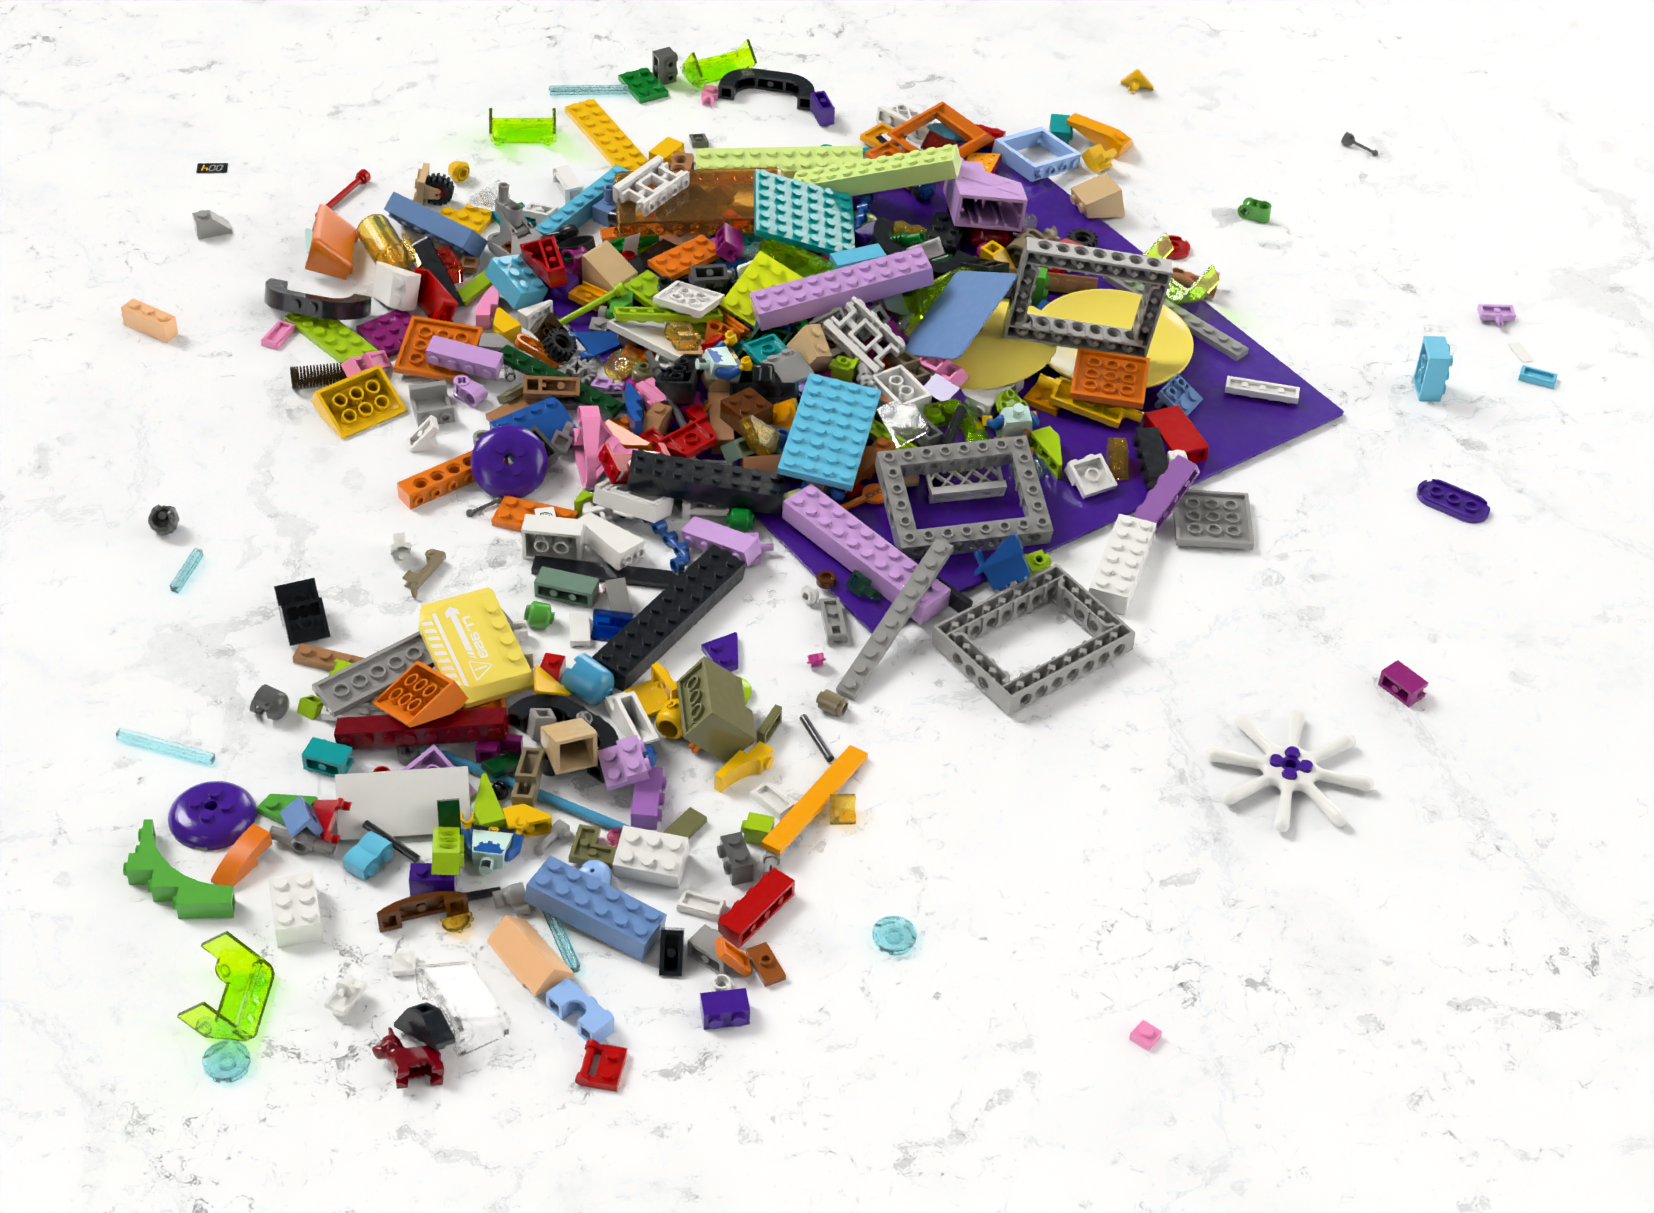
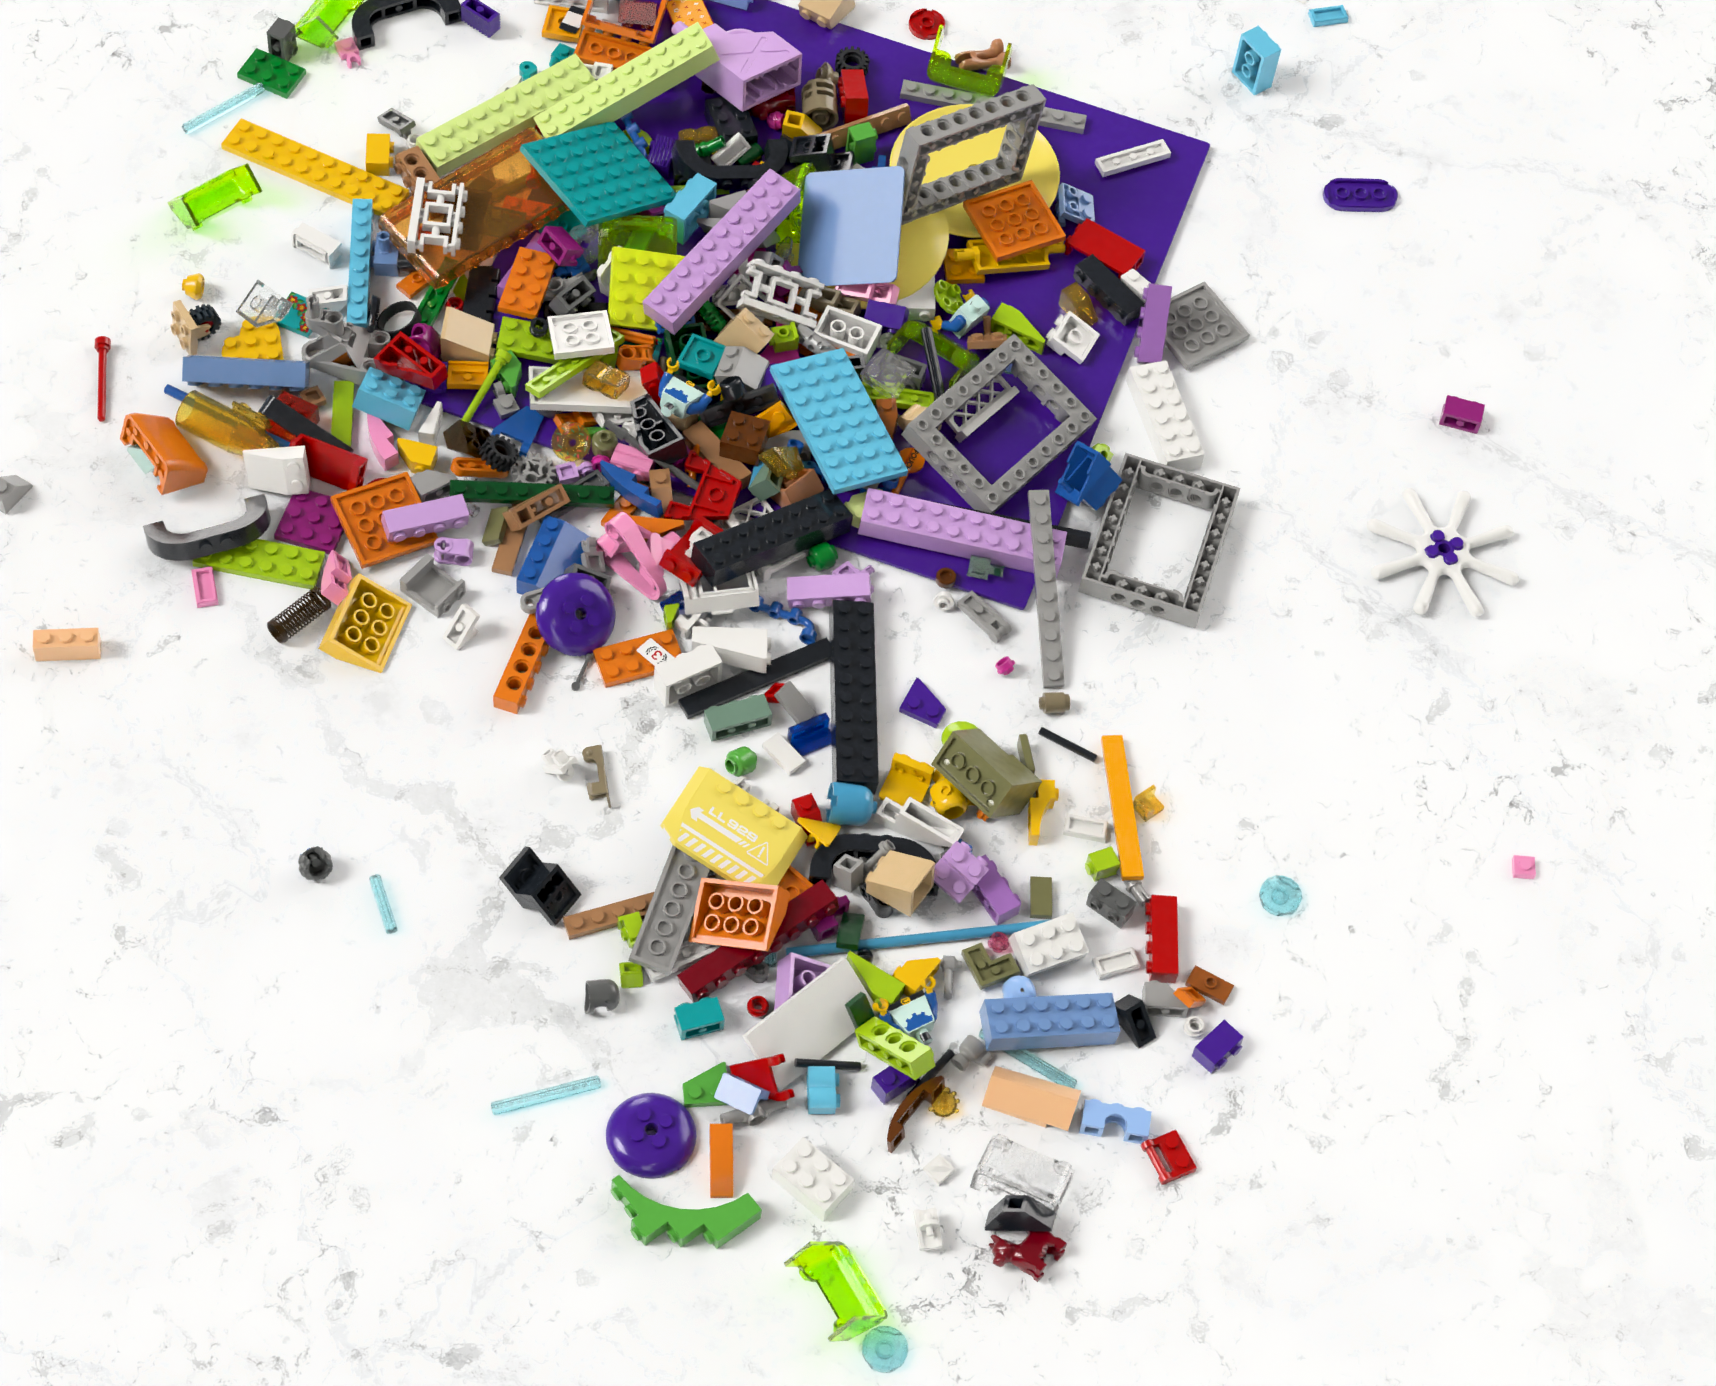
camera: 40 degrees left, 15 degrees up
(528, 777) = (887, 933): dark tan slope -> none

